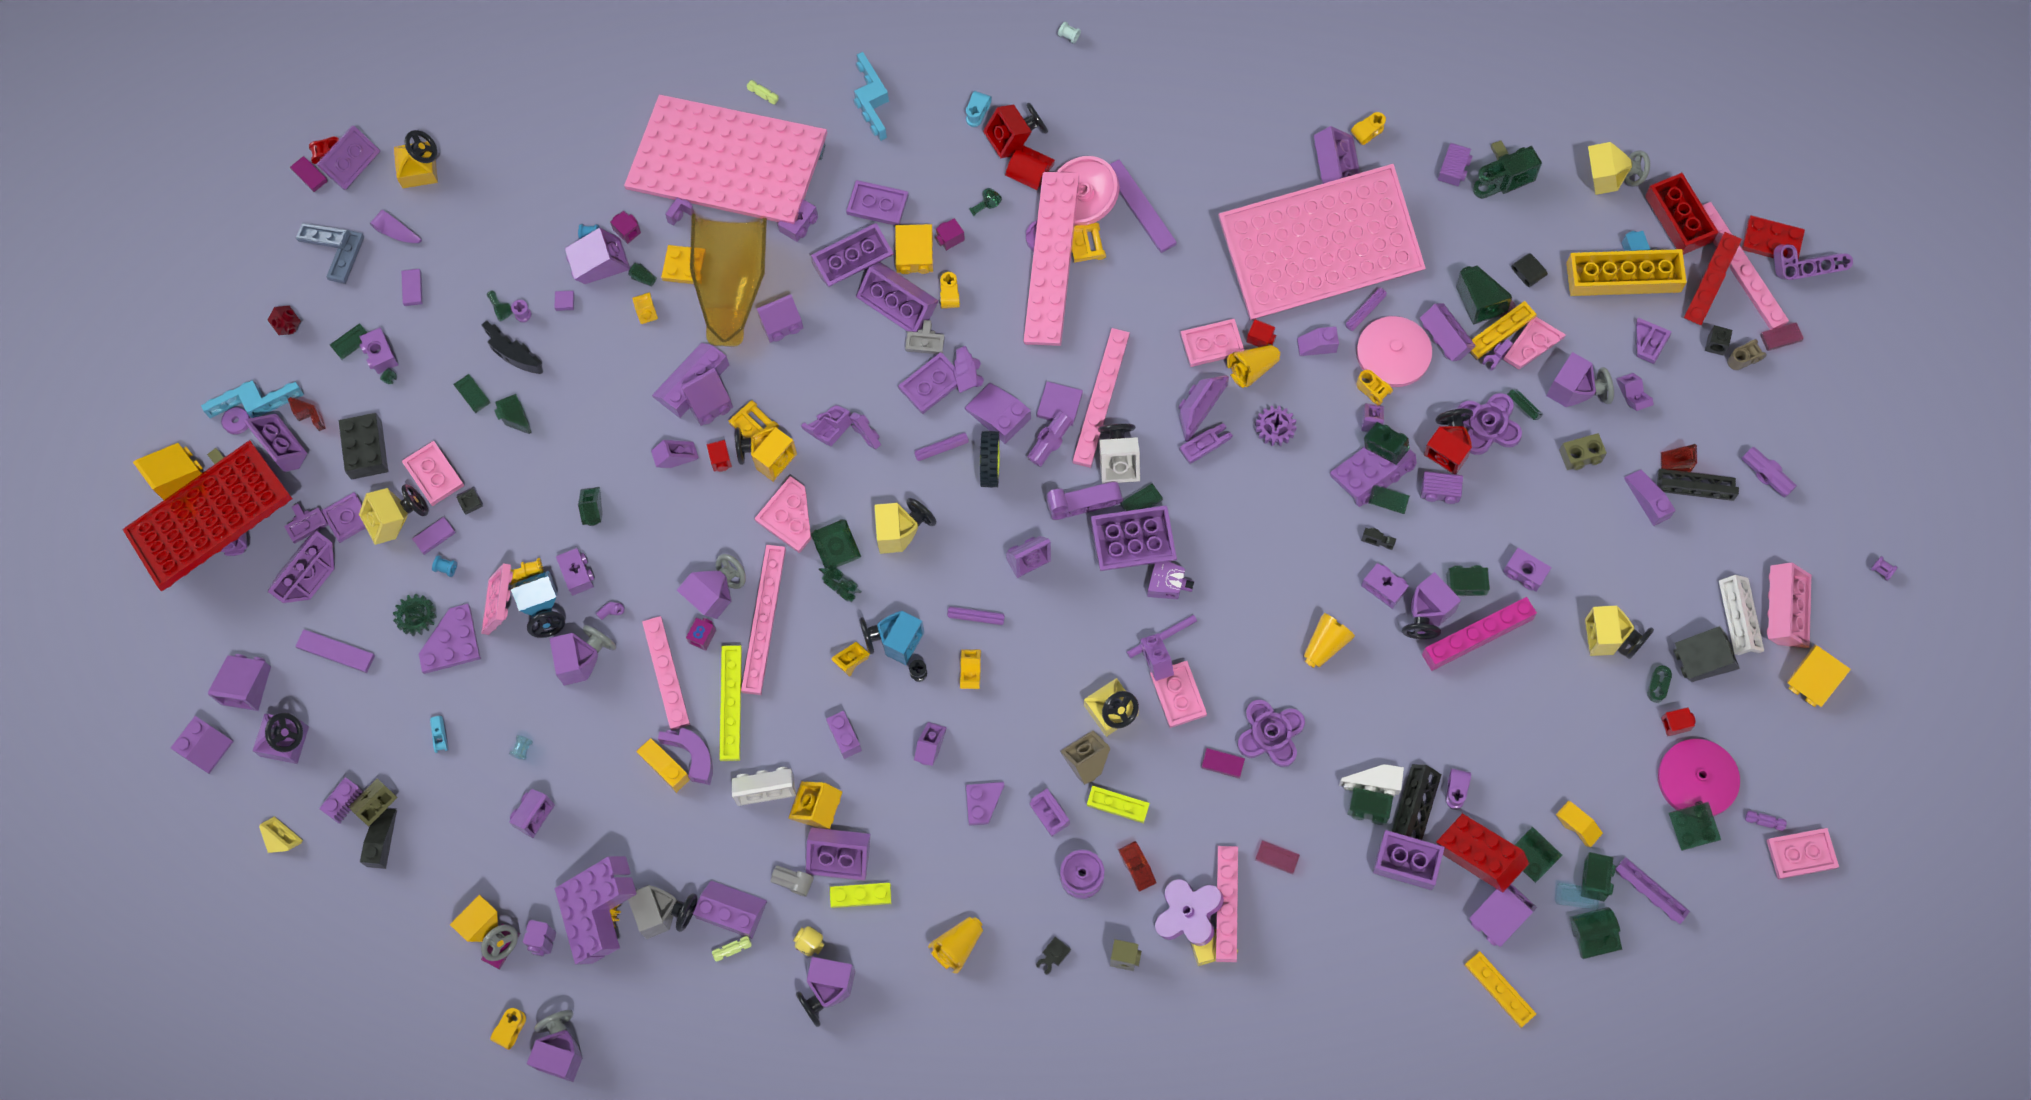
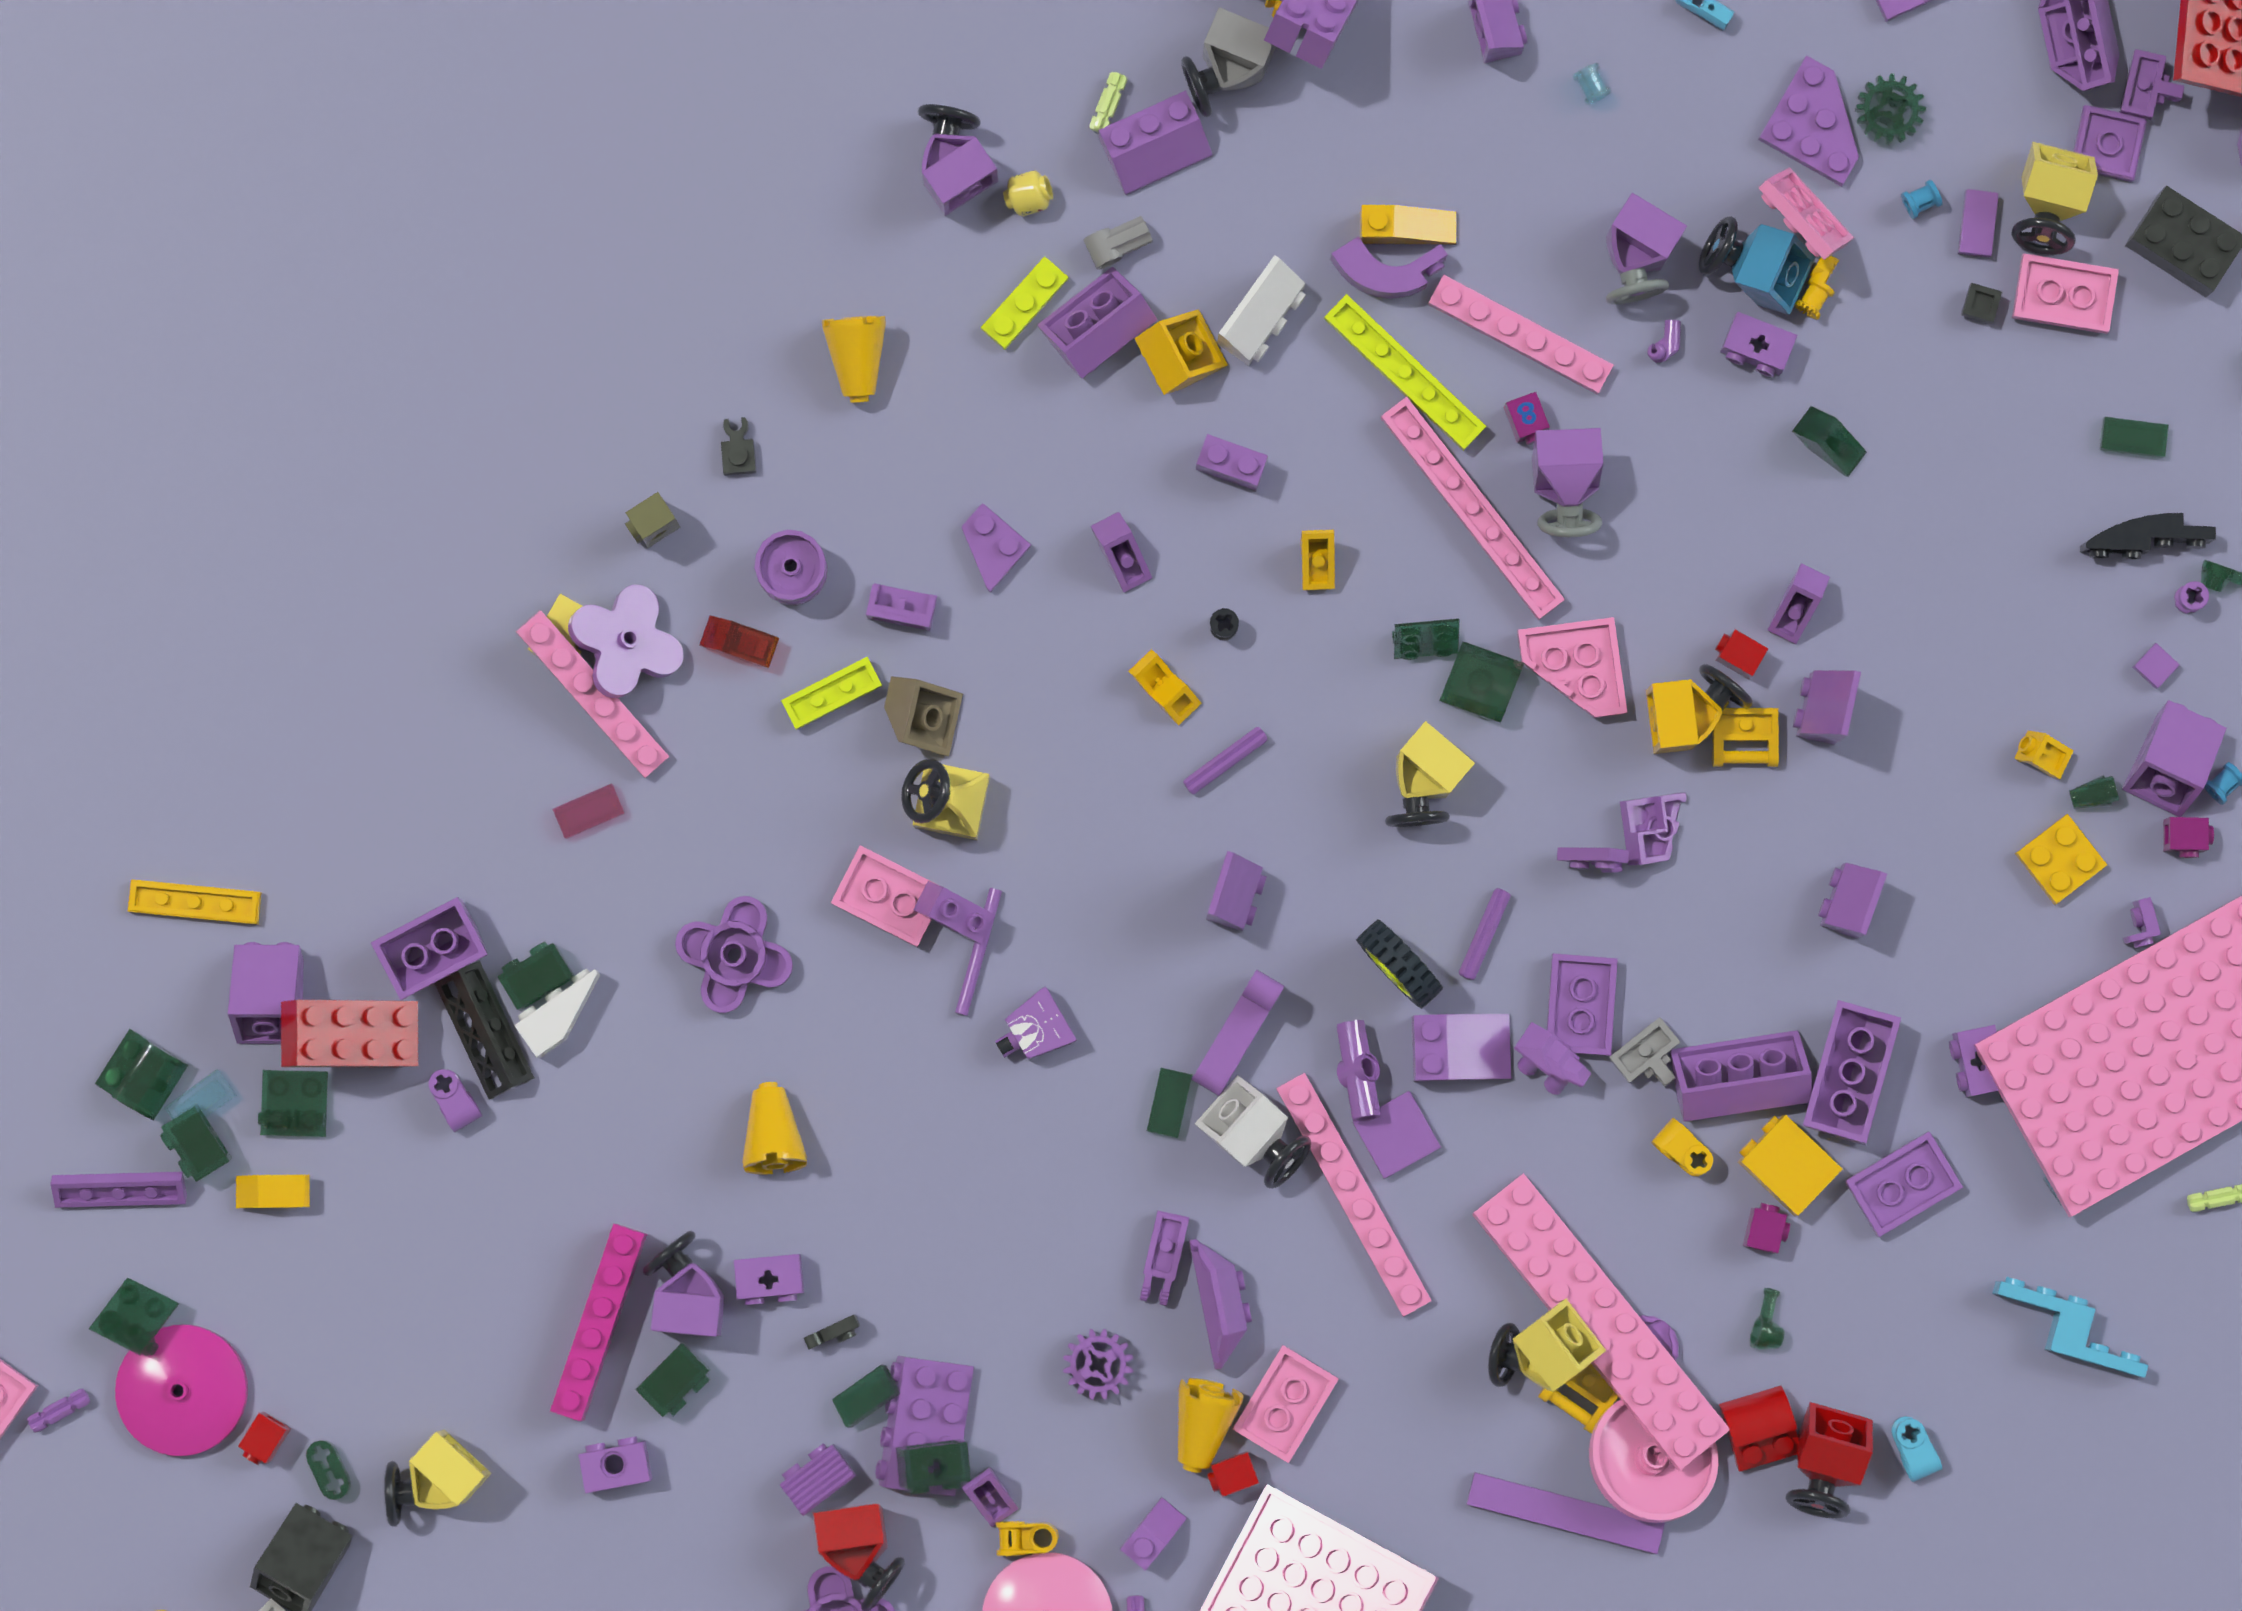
camera: 130 degrees right, 15 degrees up
(512, 413) = (2052, 459): clear green slope -> none
(697, 363) = (1886, 719): medium lavender slope -> none
(727, 274) = (1981, 890): clear yellow windscreen -> none
(898, 633) = (1289, 637): dark azure piece -> none
(1084, 255) = (1546, 1351): none -> light yellow piece
(1133, 538) = (1124, 1033): medium lavender slope -> none
(1223, 763) = (757, 864): magenta tile -> none

